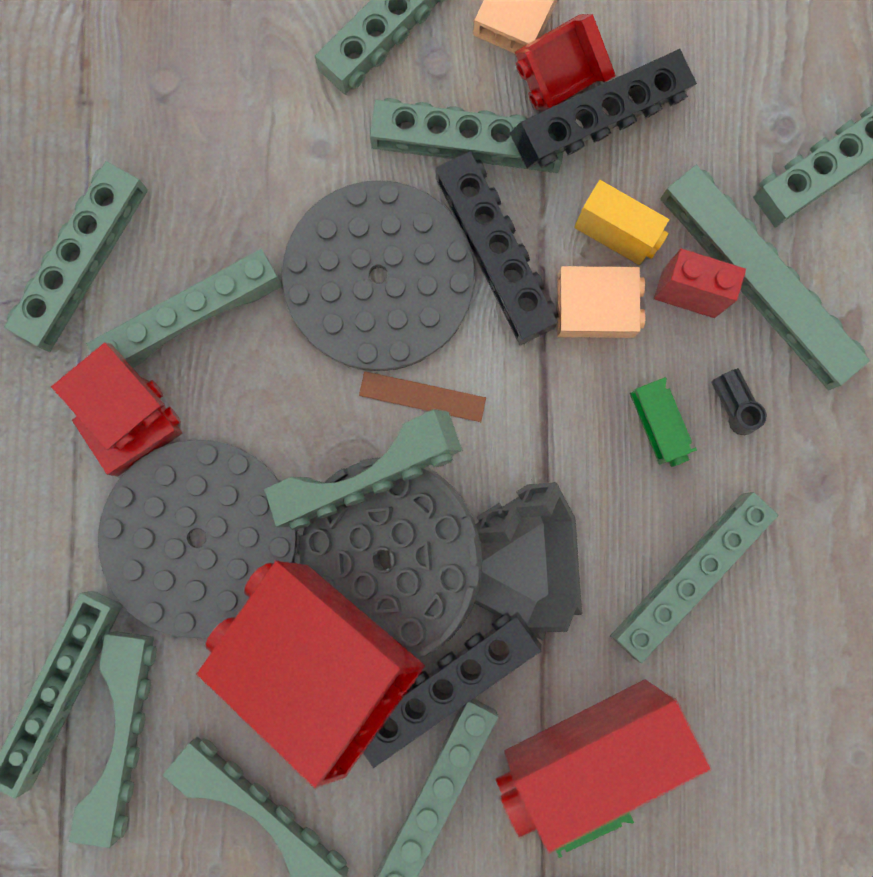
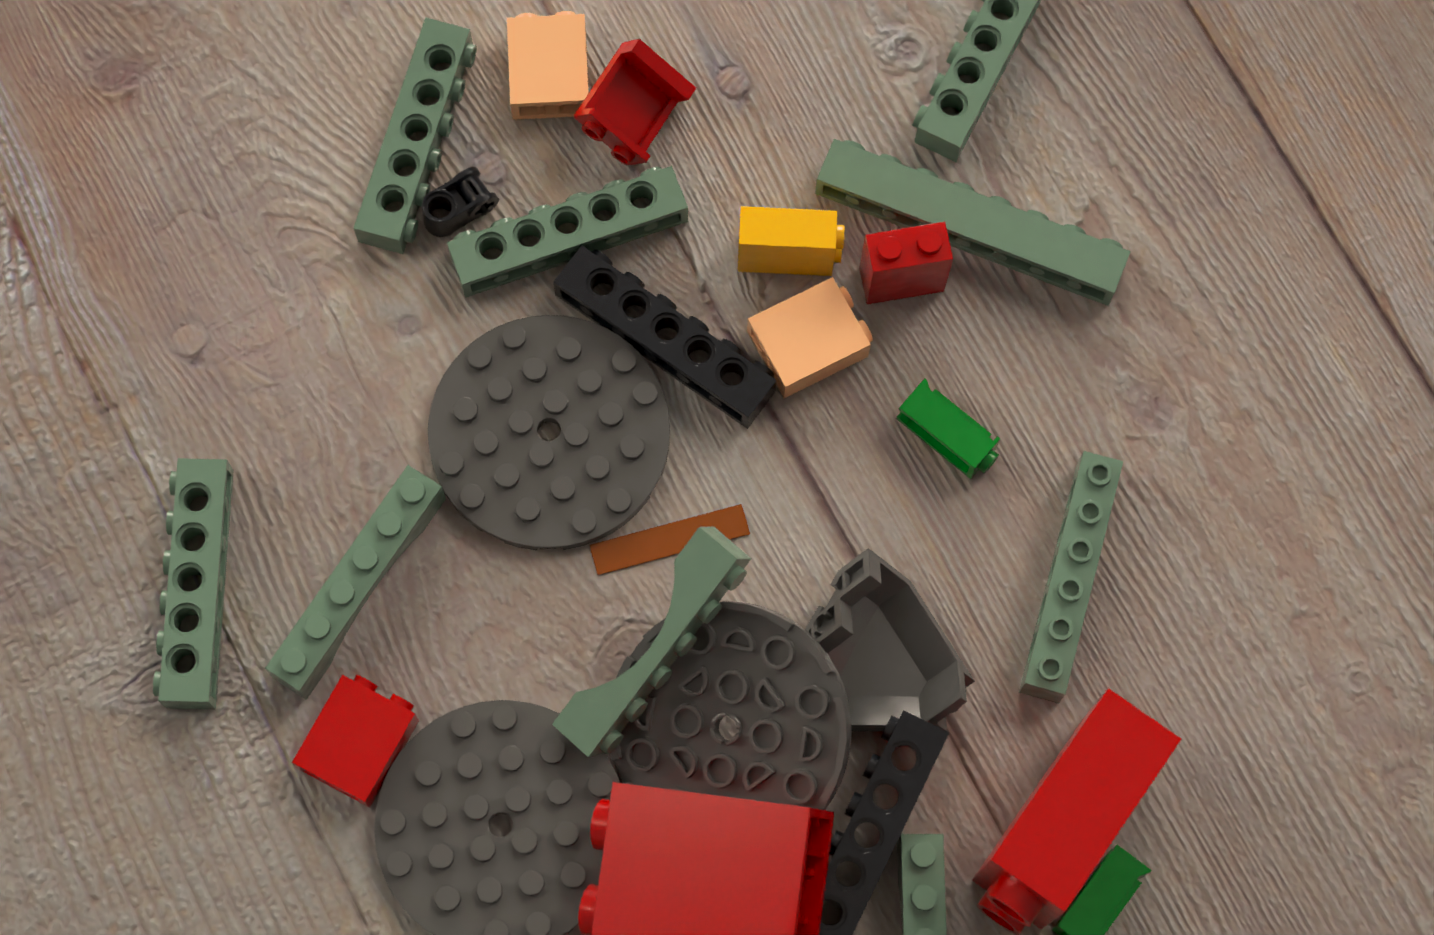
camera: 30 degrees left, 10 degrees down
(109, 397) = (329, 708): red brick -> none
(402, 73) = (463, 197): none -> black piece
(668, 73) = (644, 196): black brick -> none
(737, 398) = (1015, 364): black piece -> none

